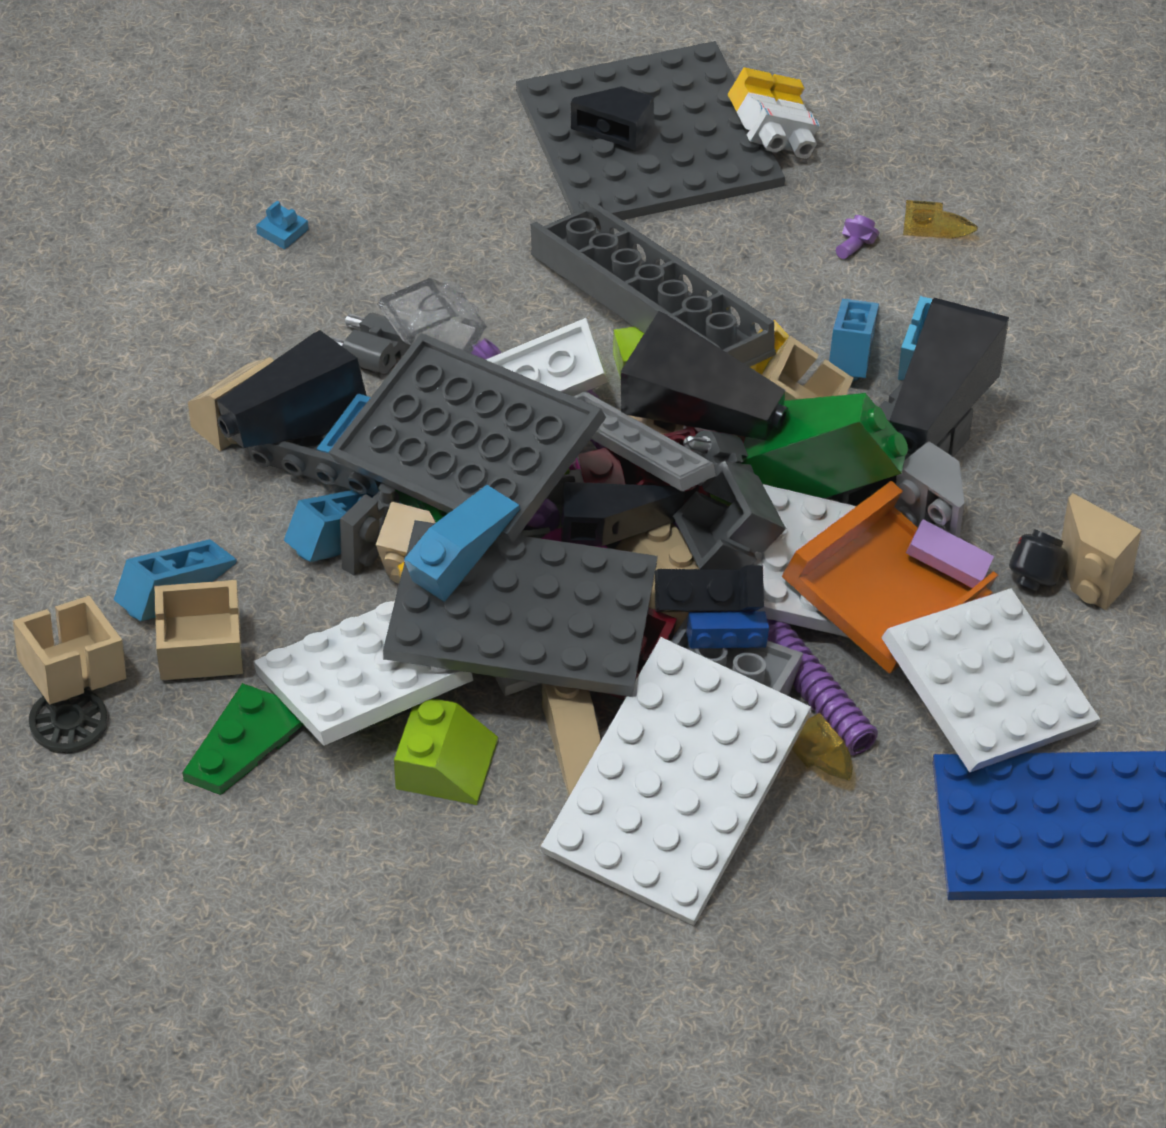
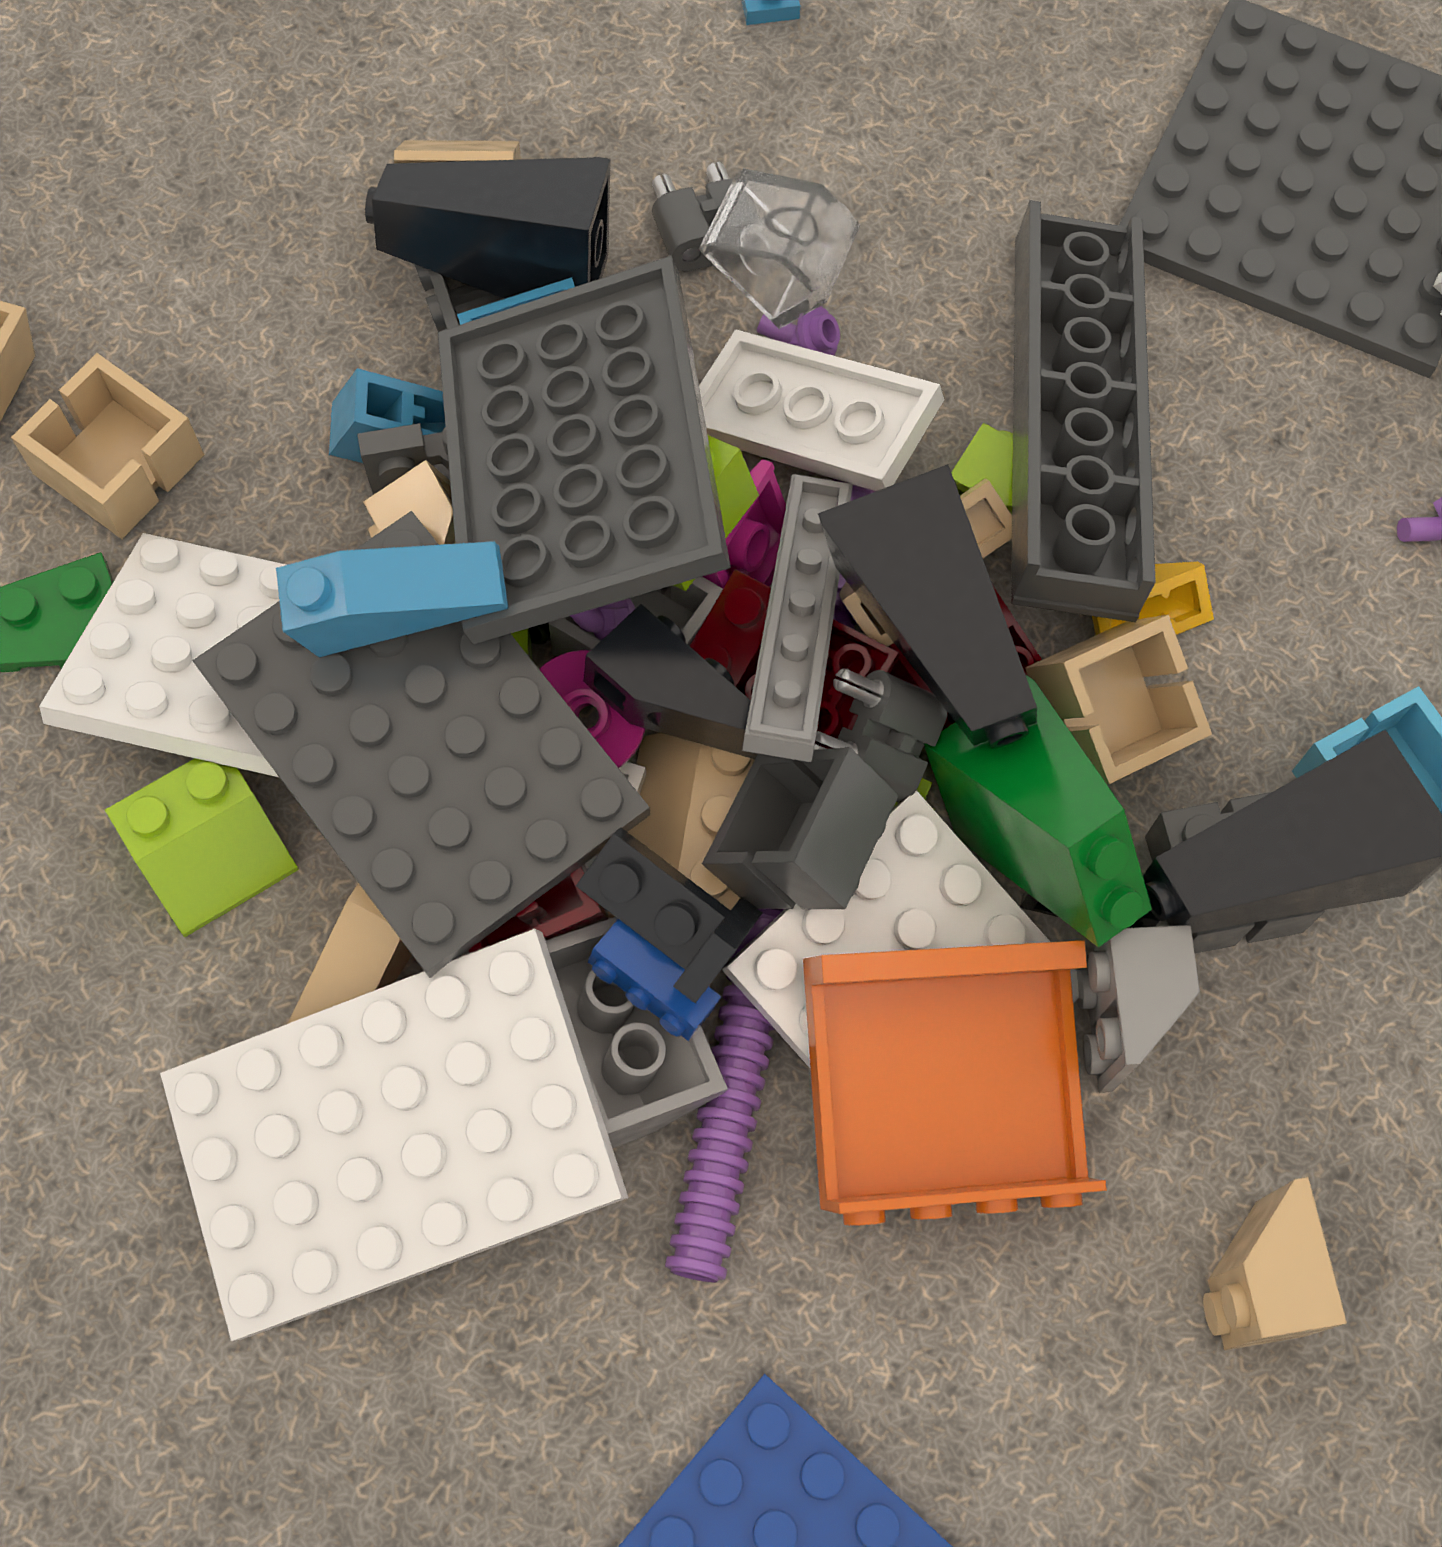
camera: 40 degrees right, 20 degrees up
(179, 565) = (177, 350): dark azure slope -> none
(614, 115) = (1291, 126): black slope -> none
(824, 748) = (635, 1240): clear yellow plate -> none
(853, 337) = (1288, 666): dark azure slope -> none
(949, 554) = (1075, 1102): lavender tile -> none
(990, 679) = (925, 1350): white plate -> none
(1038, 560) = (1193, 1208): black head -> none

